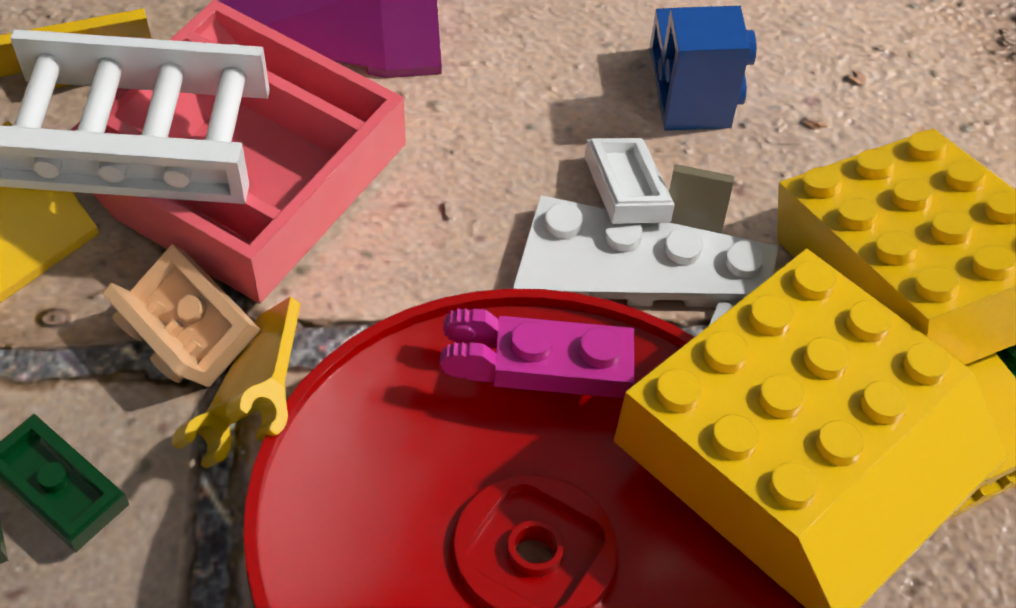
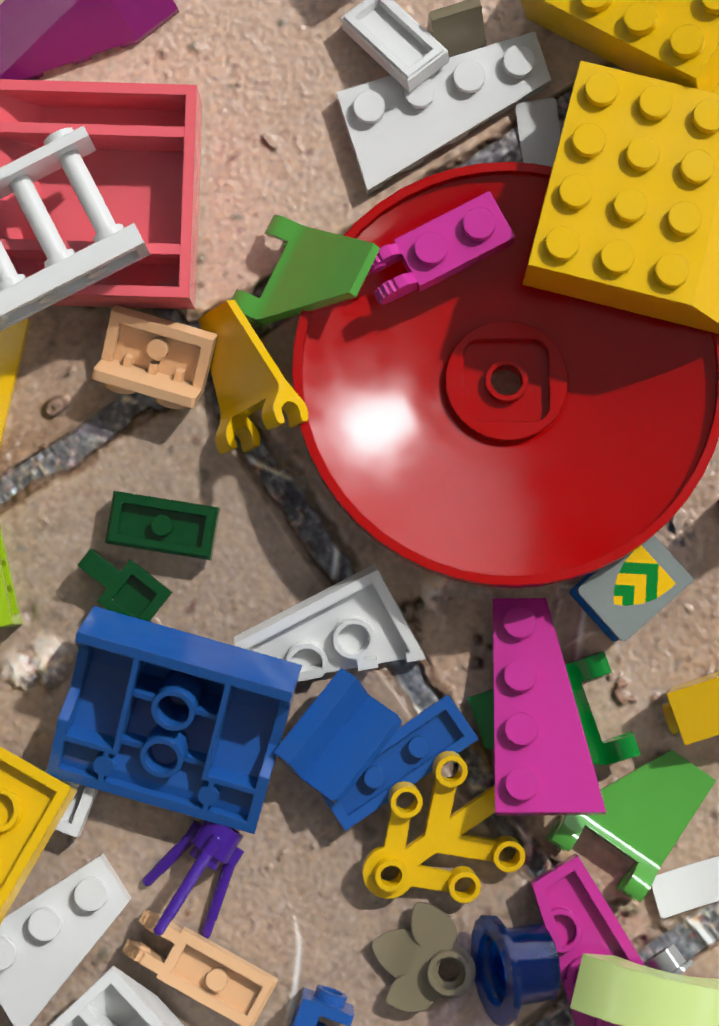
camera: 30 degrees left, 30 degrees up
(397, 310) = (311, 273): none -> bright green flag

